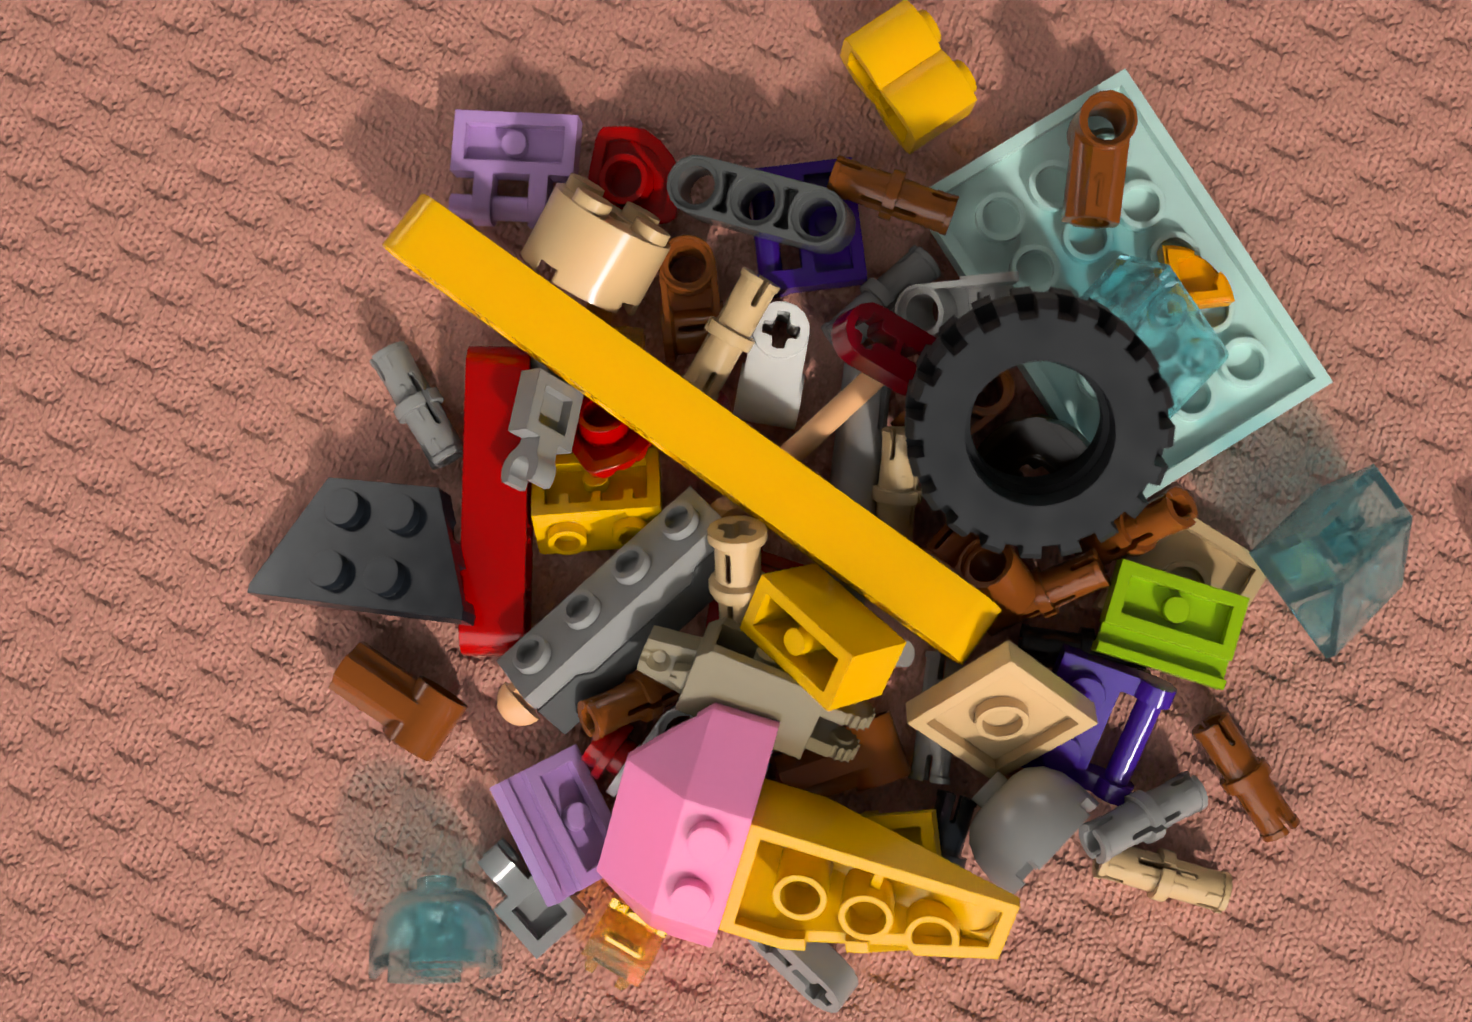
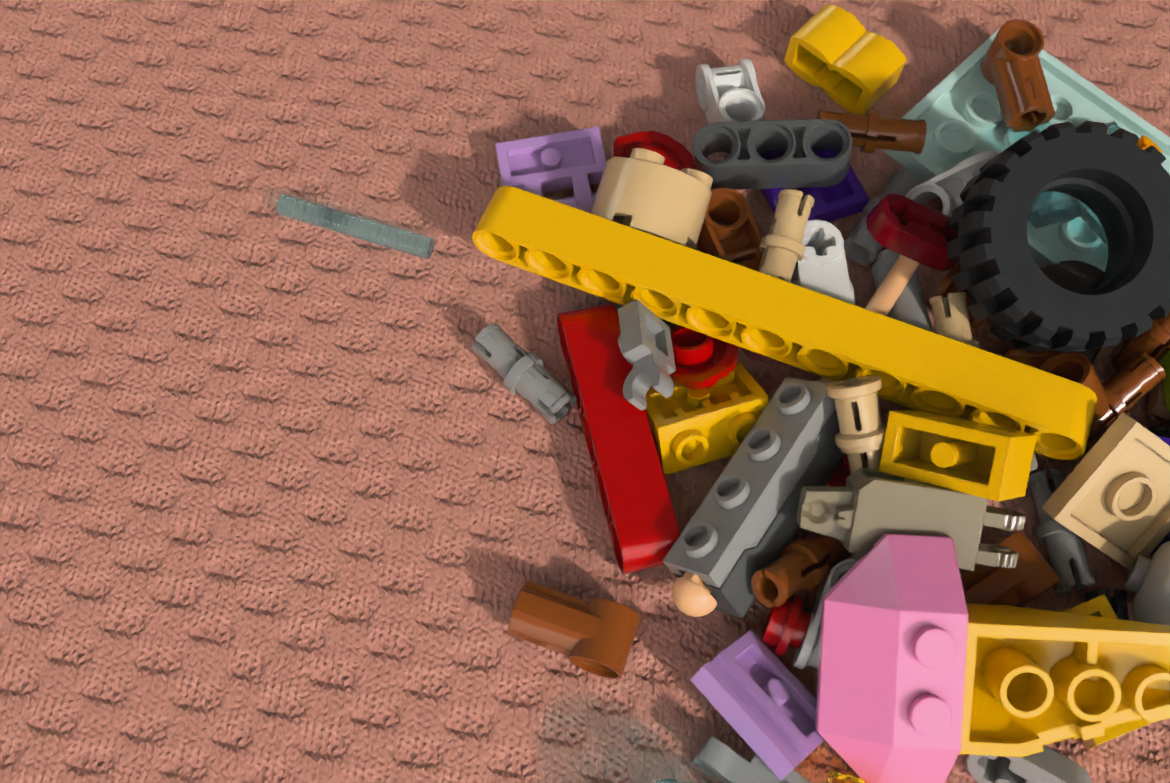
camera: 20 degrees left, 20 degrees down
(280, 177) = (355, 226): none -> clear light blue bar
(371, 553) = (517, 499): black wing -> none
(751, 103) = (729, 93): none -> white piece

